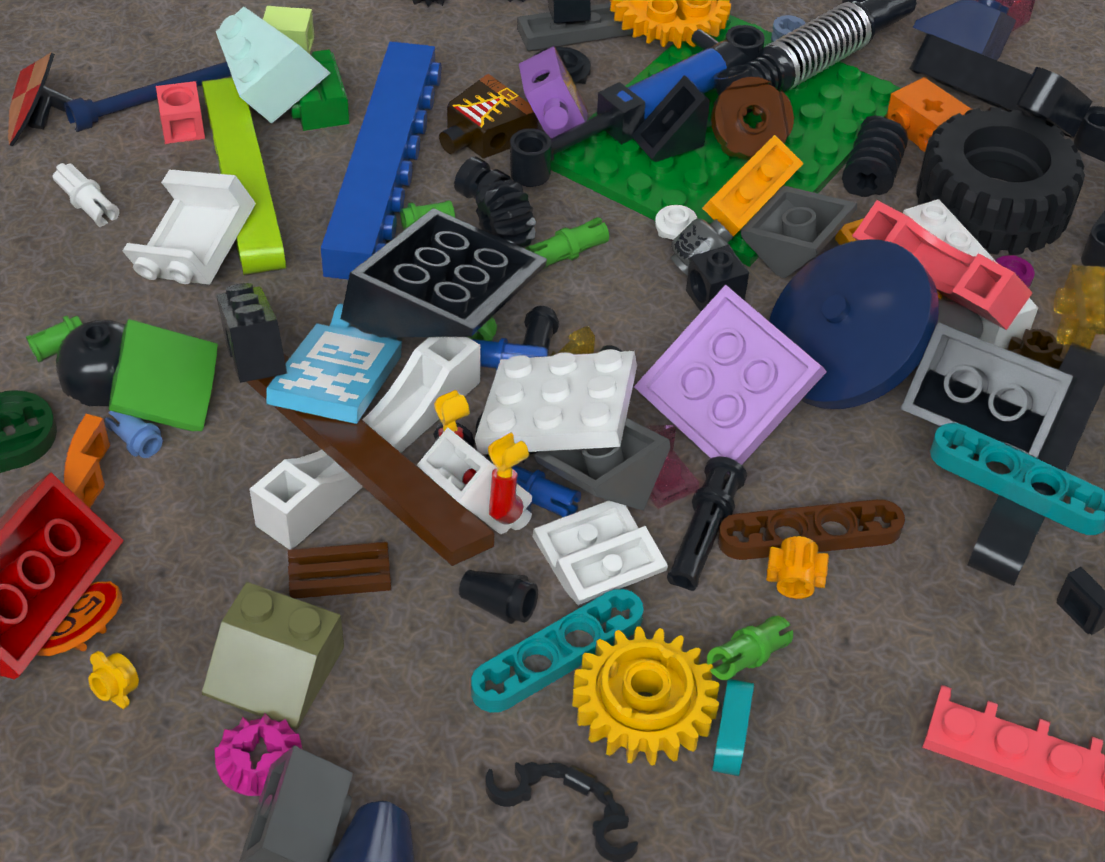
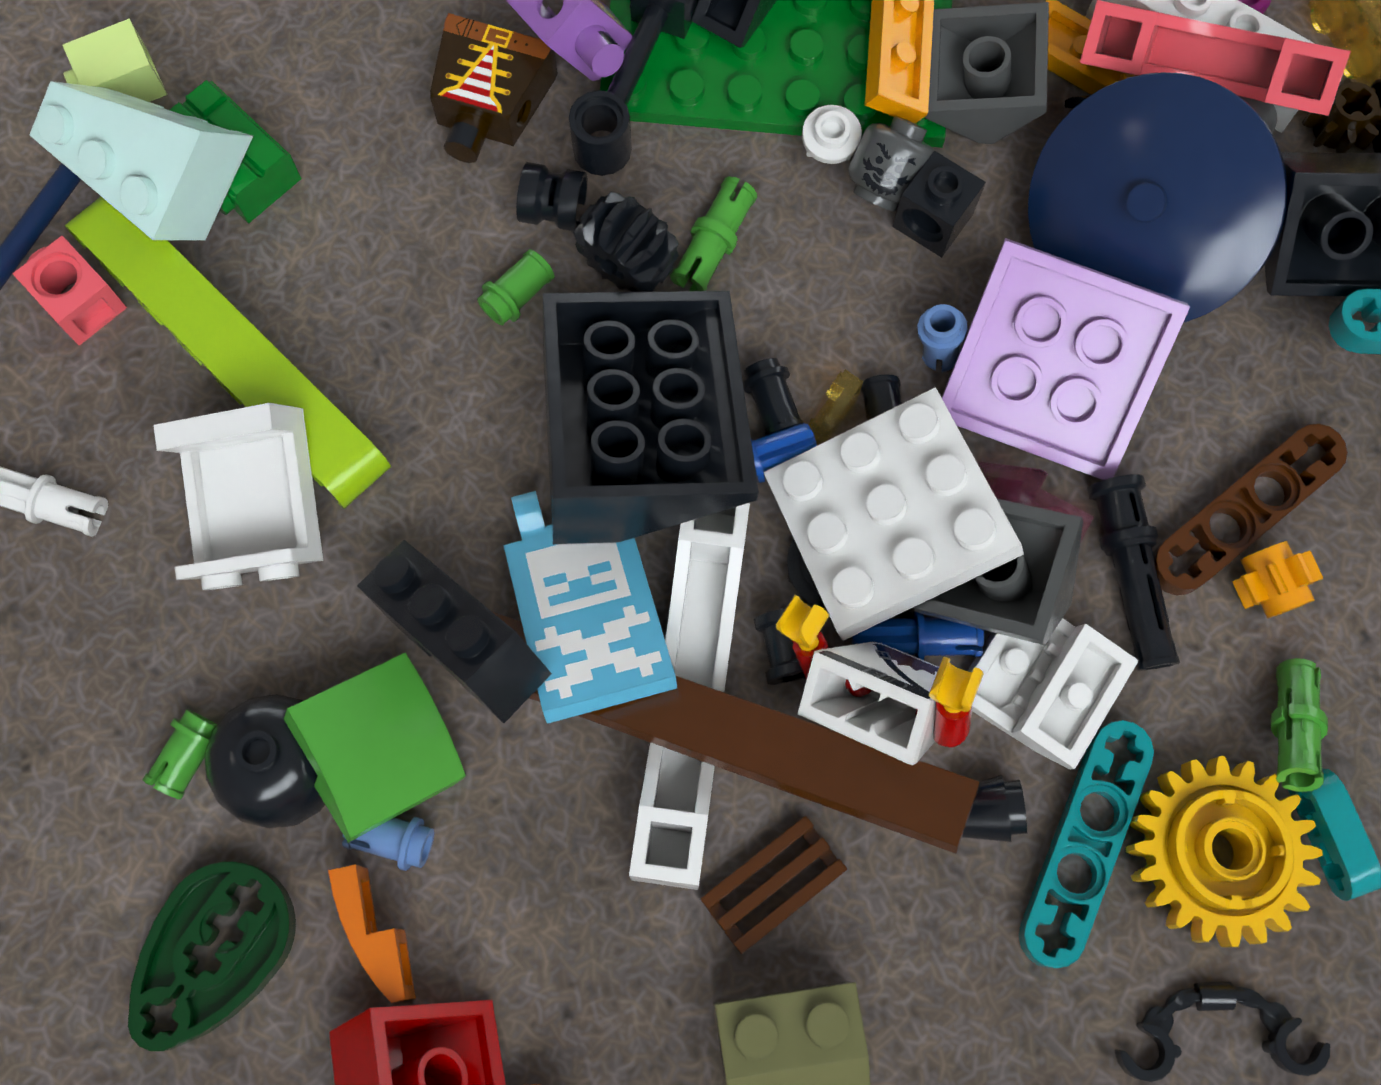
camera: 30 degrees left, 25 degrees up
(381, 158) = (396, 227): blue brick -> none
(663, 334) = (941, 333): none -> medium blue pin

